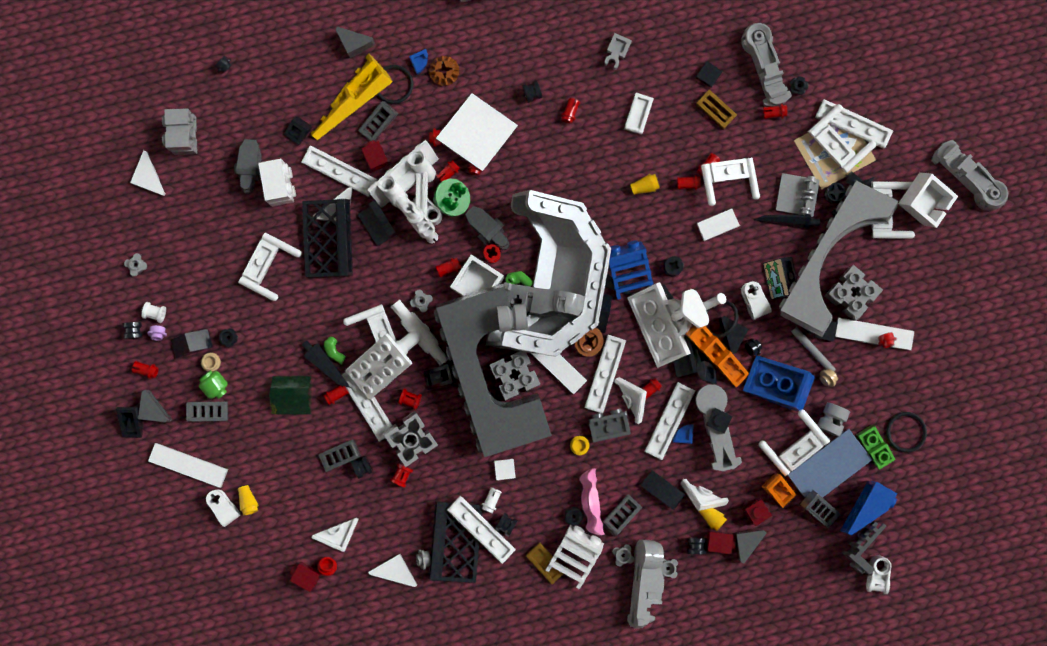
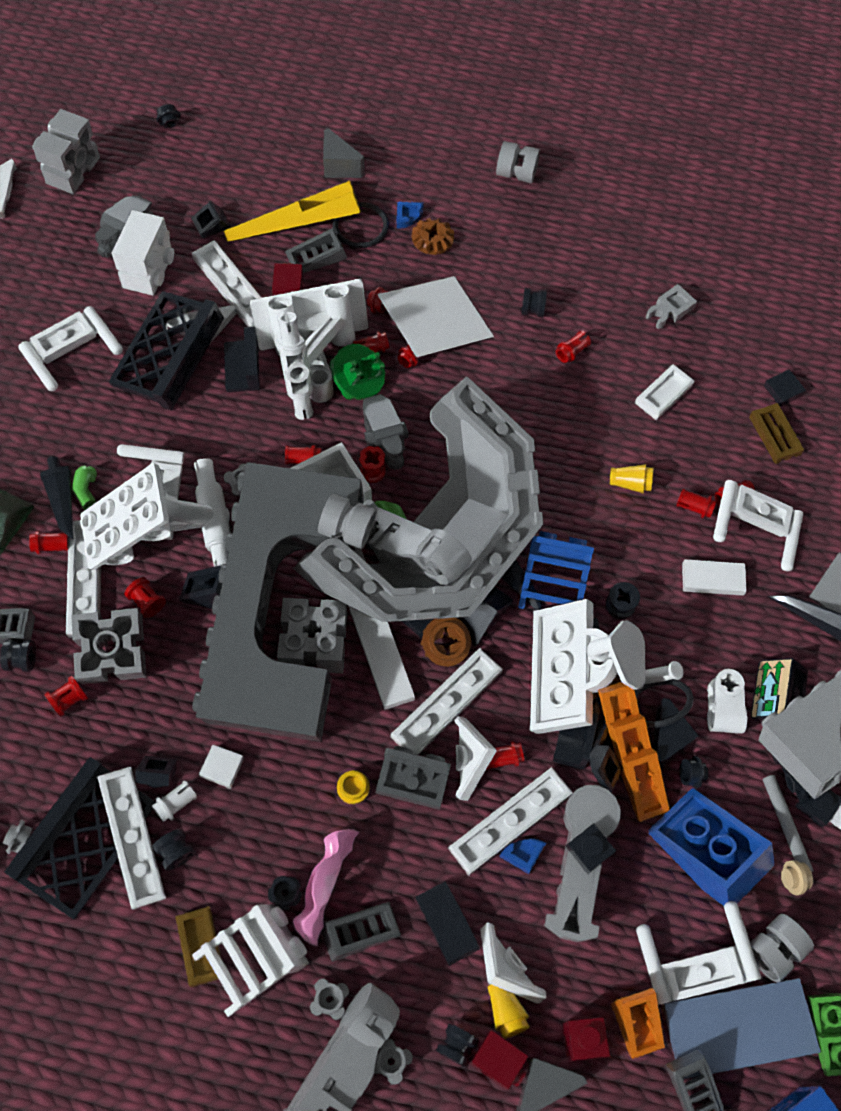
camera: 20 degrees right, 20 degrees down
(473, 490) = (156, 771): none -> black plate

